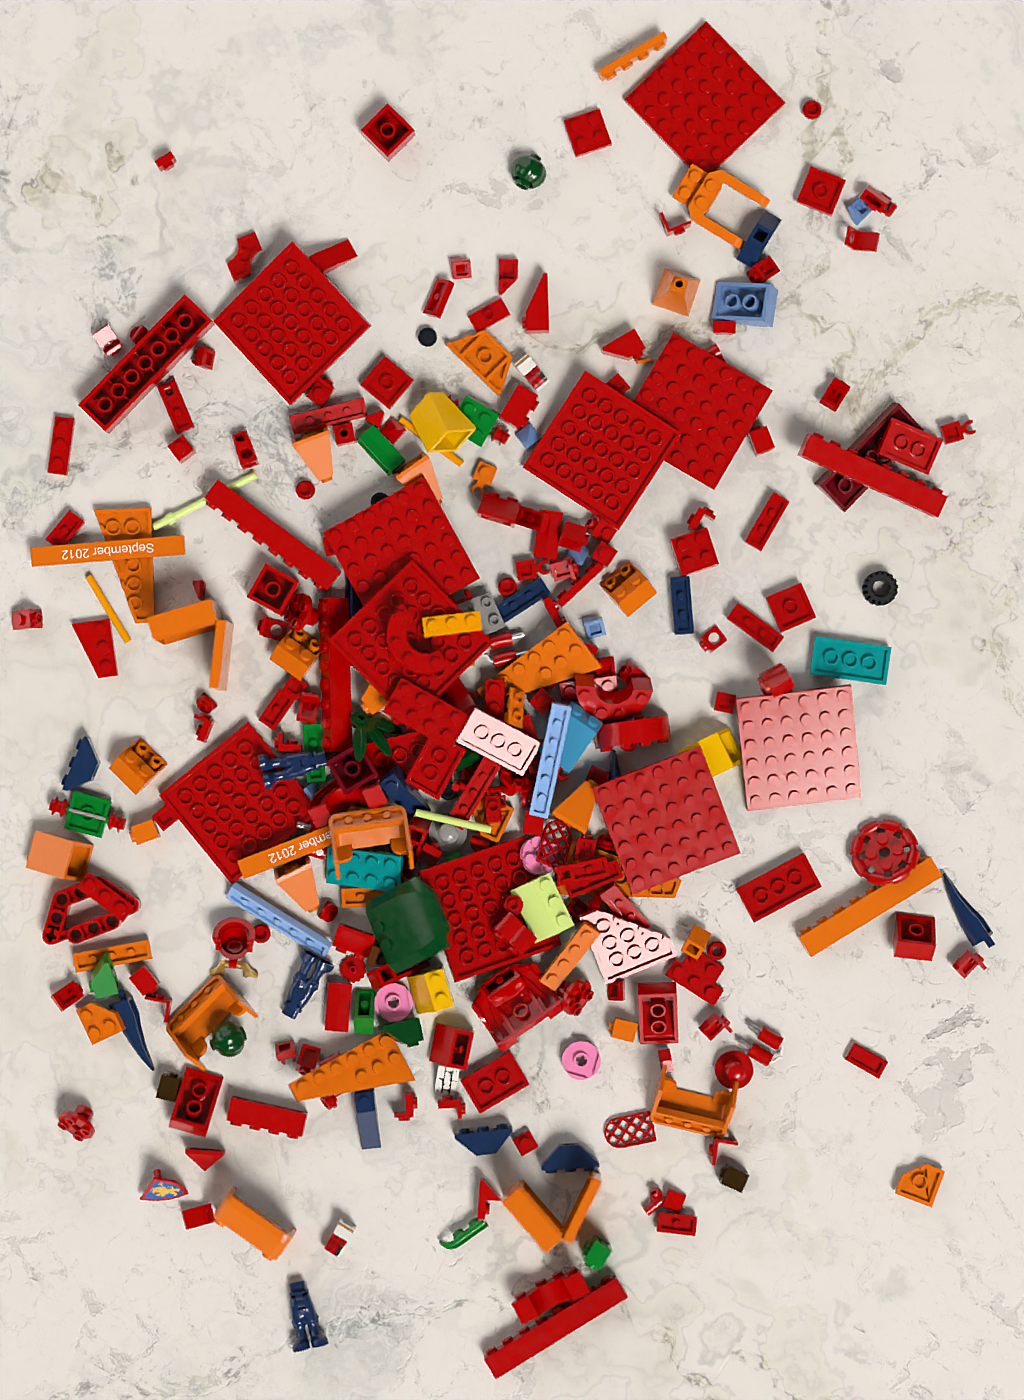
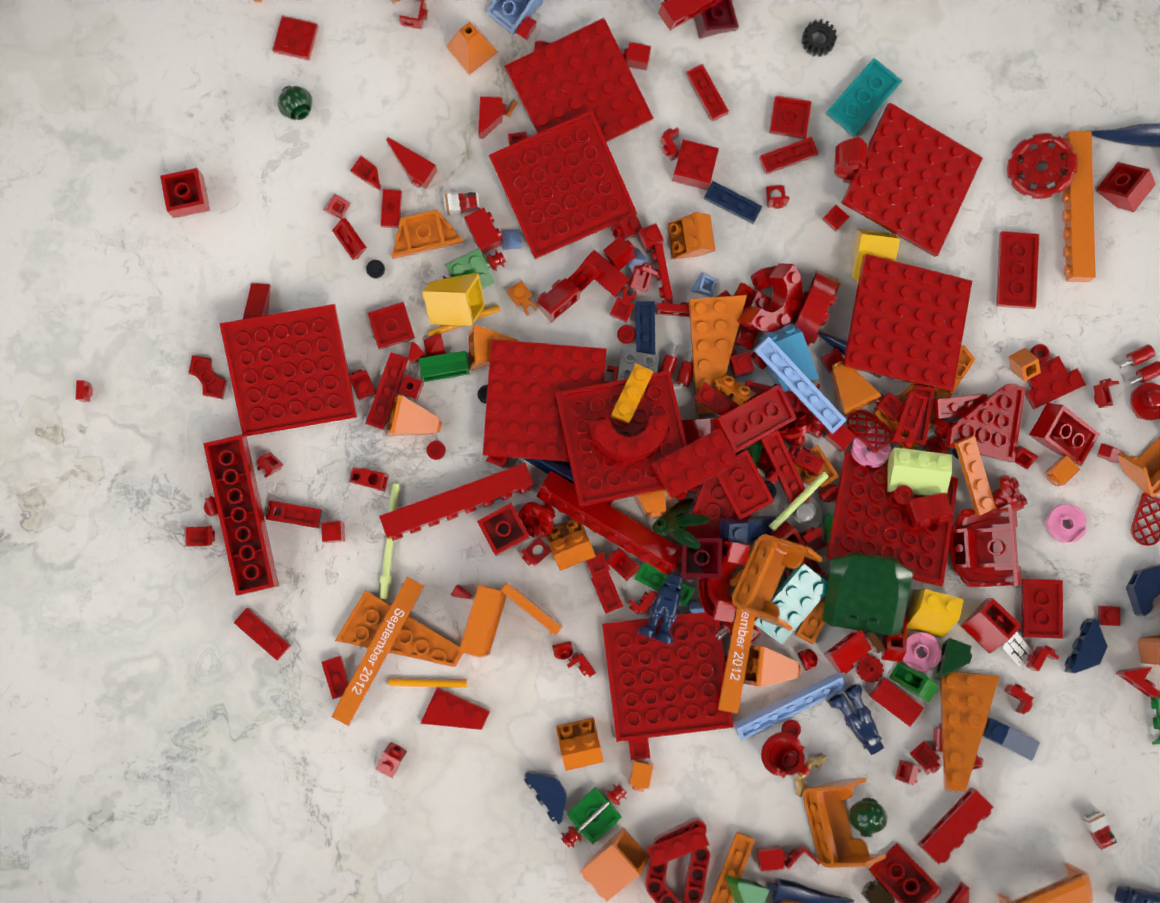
camera: 55 degrees left, 5 degrees down
(605, 842) = (893, 386): red plate -> none

